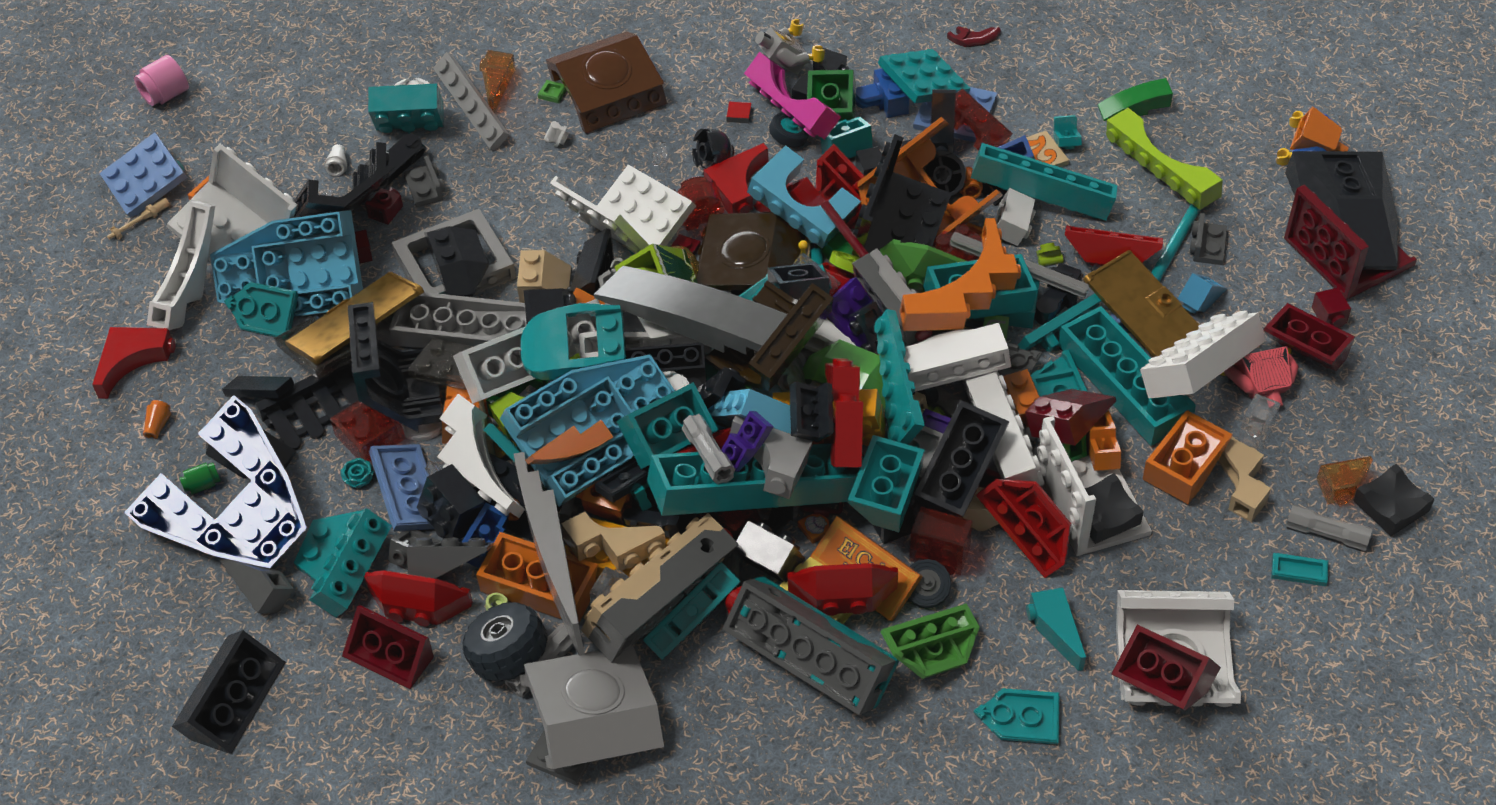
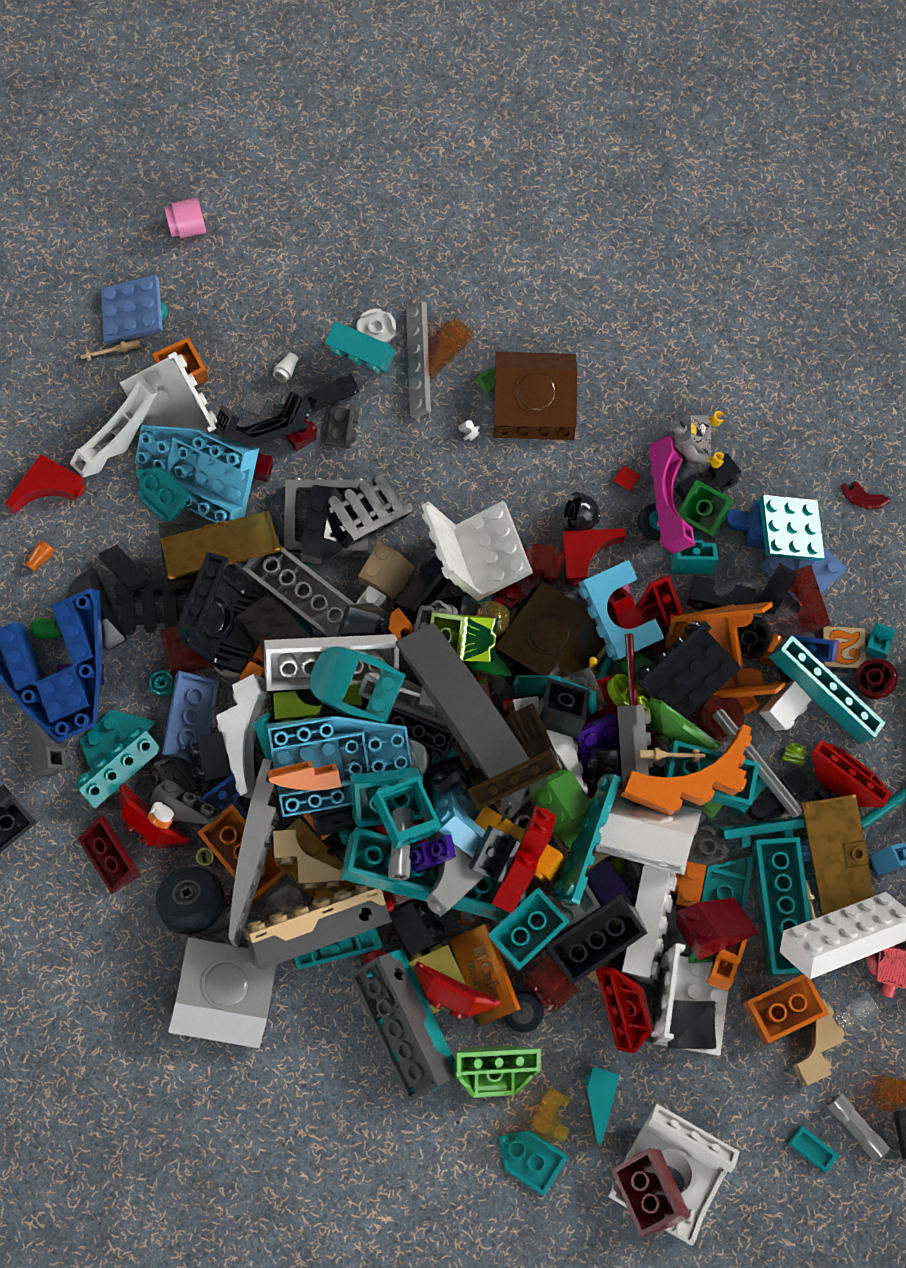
camera: 20 degrees right, 20 degrees up
(428, 568) = (161, 815): none -> white piece
(495, 228) = (361, 516): none -> fence
(724, 409) = (413, 834): none -> teal window
(918, 281) = (658, 754): none -> tan piece
(1015, 662) = (544, 1118): none -> clear yellow hips
(1085, 156) = (876, 678): none -> dark red cone

